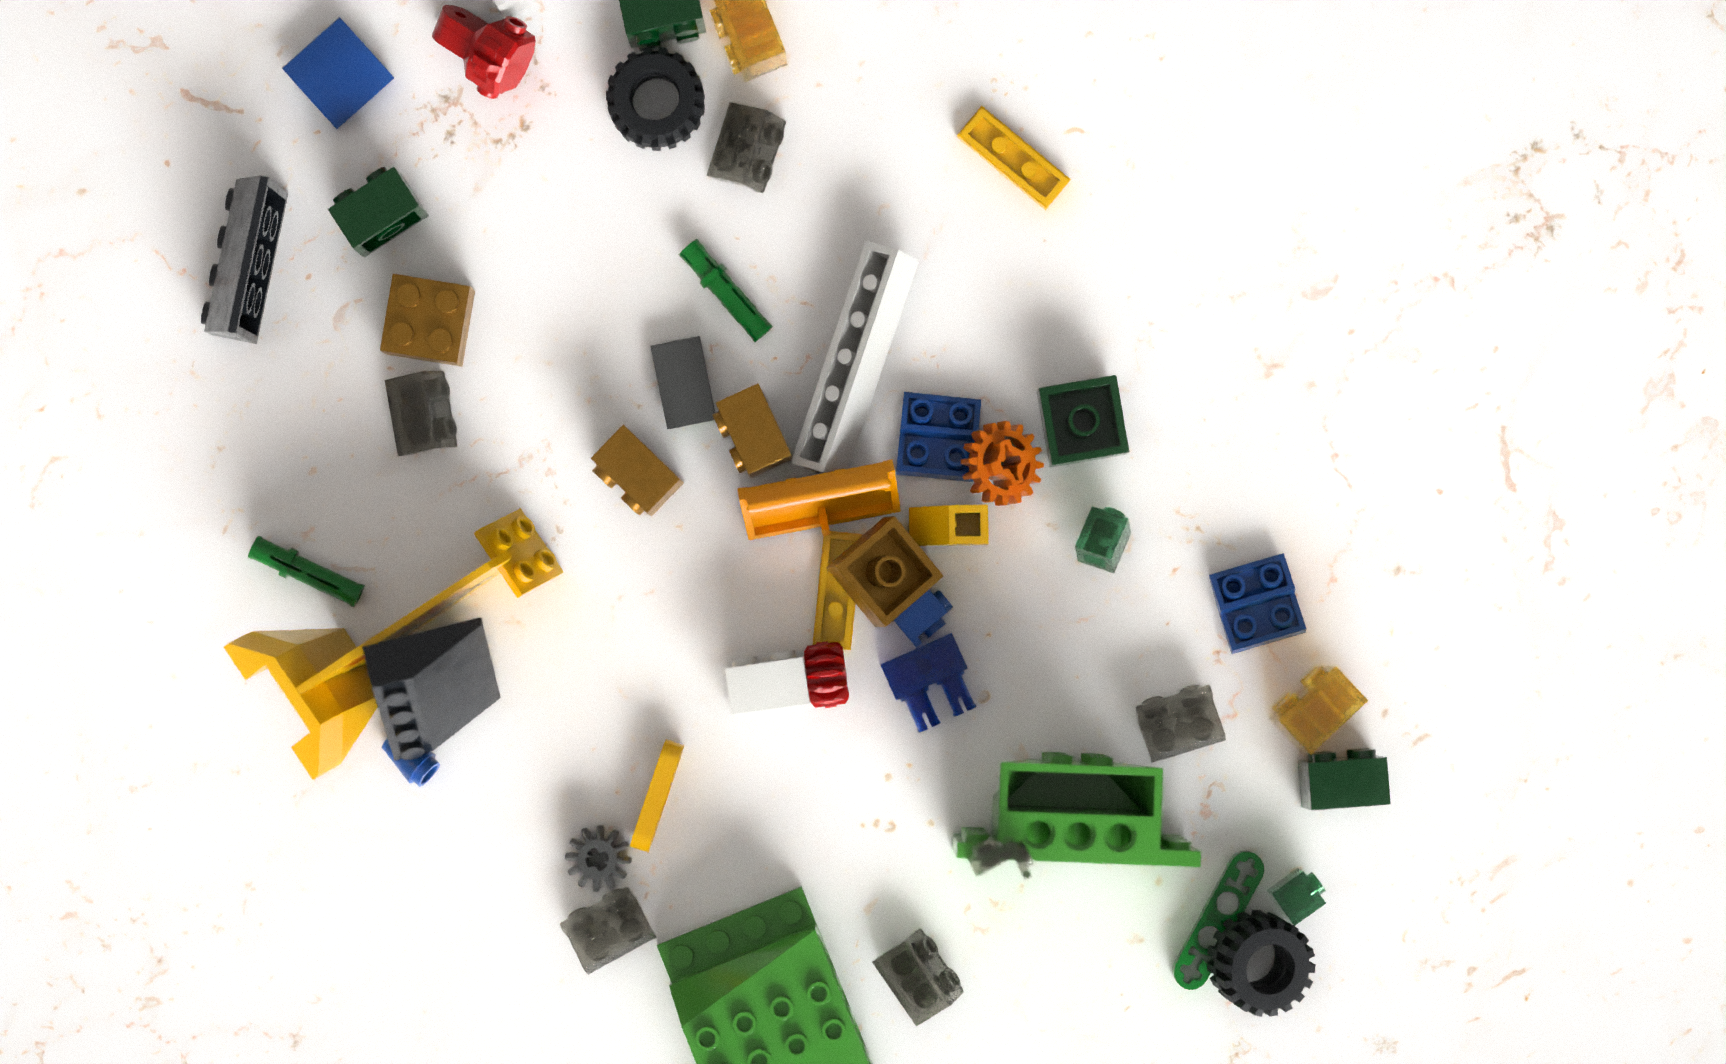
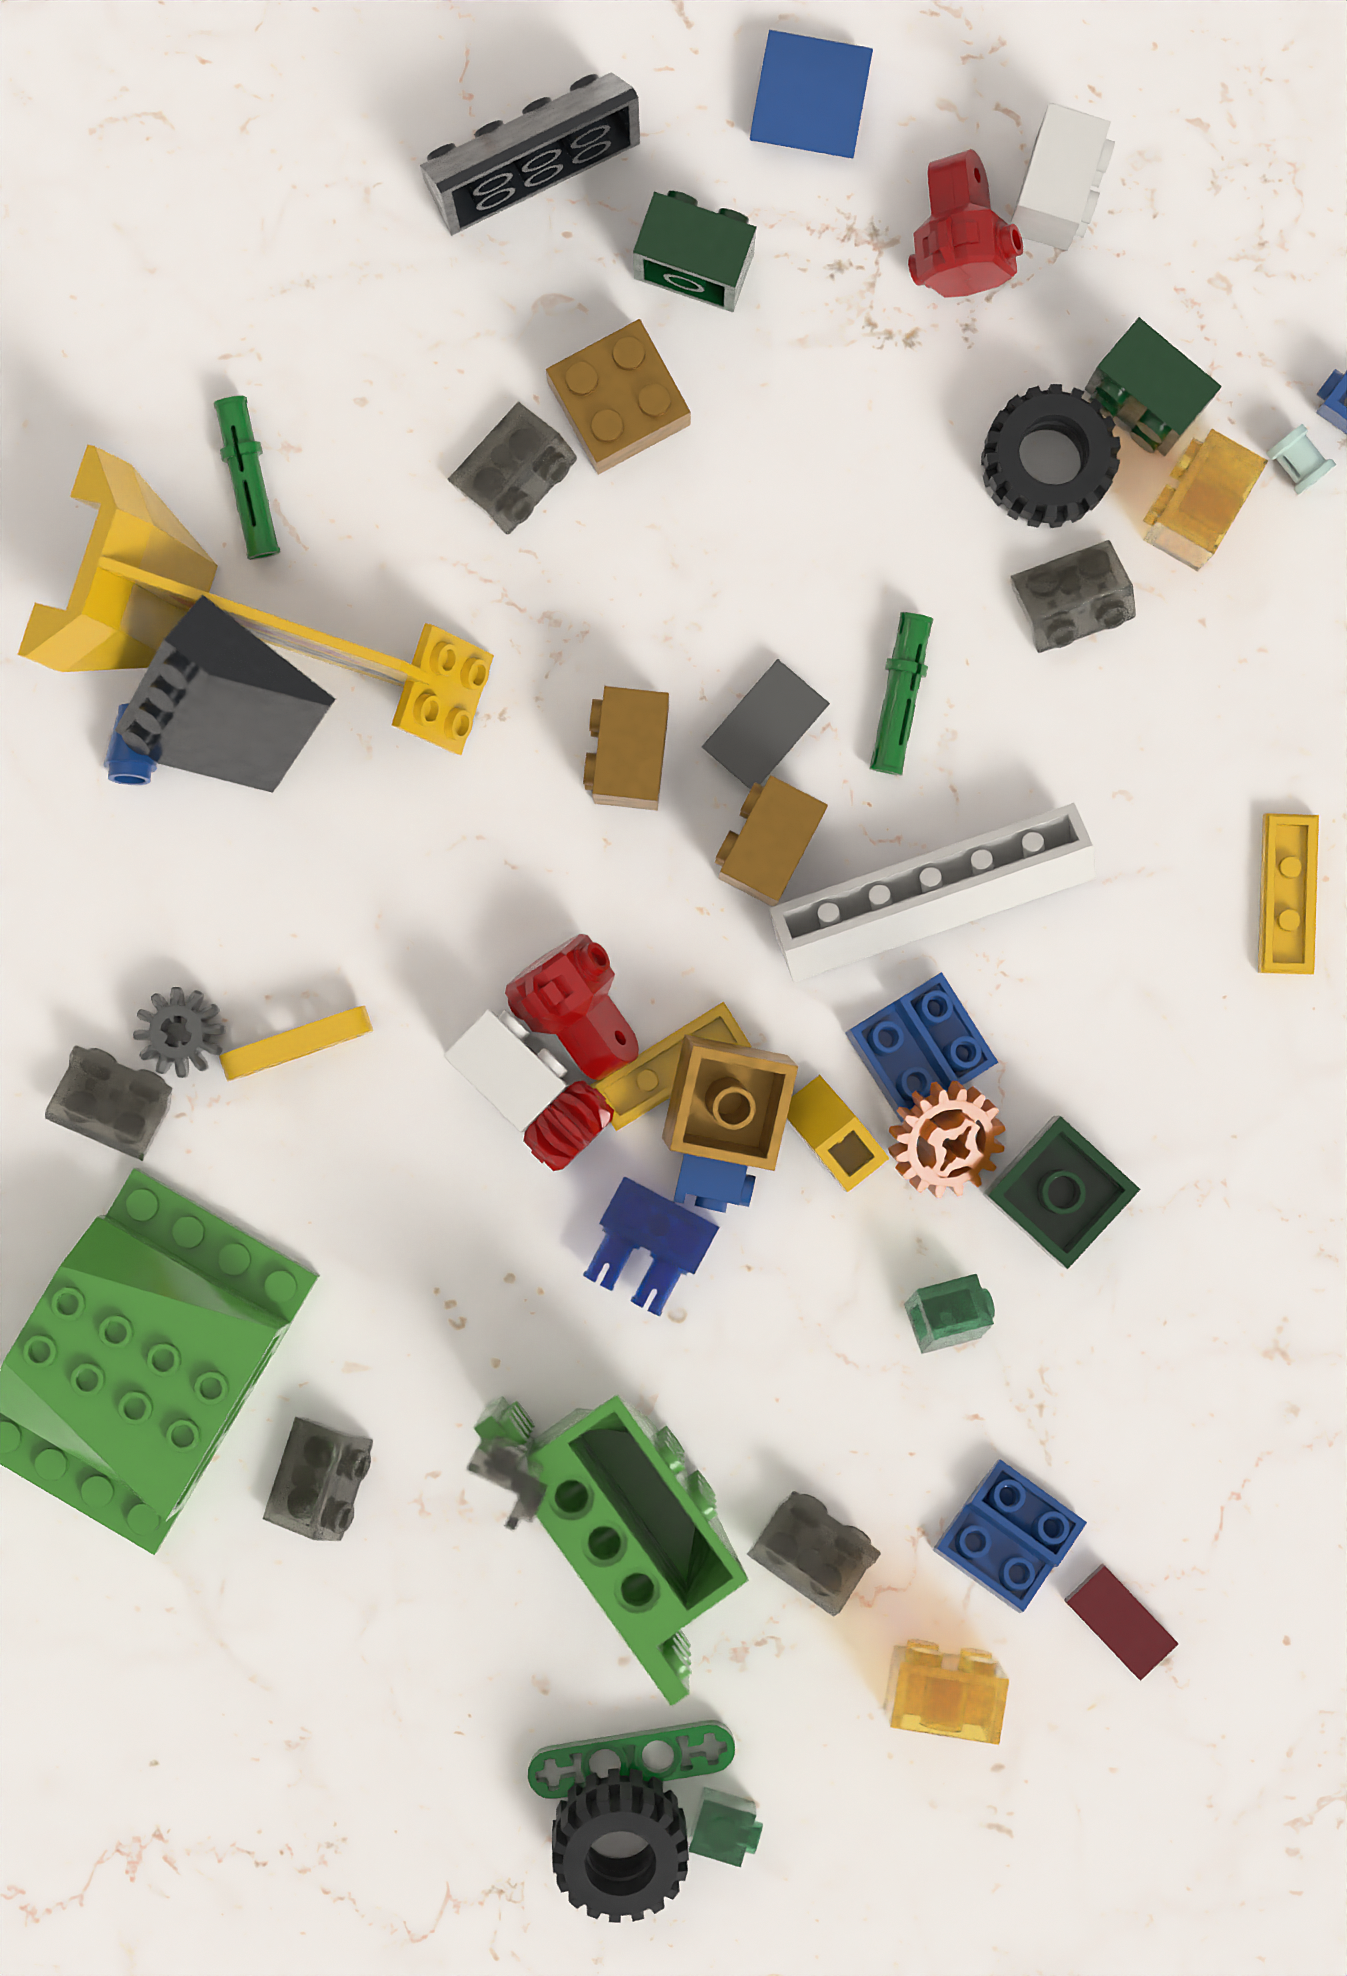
camera: 55 degrees right, 0 degrees up
(753, 617) = (570, 998): none -> red piece
(819, 500) = (752, 971): light orange container -> none
(1344, 781) = (888, 1784): dark green brick -> none
(1355, 577) = (1121, 1622): none -> dark red tile

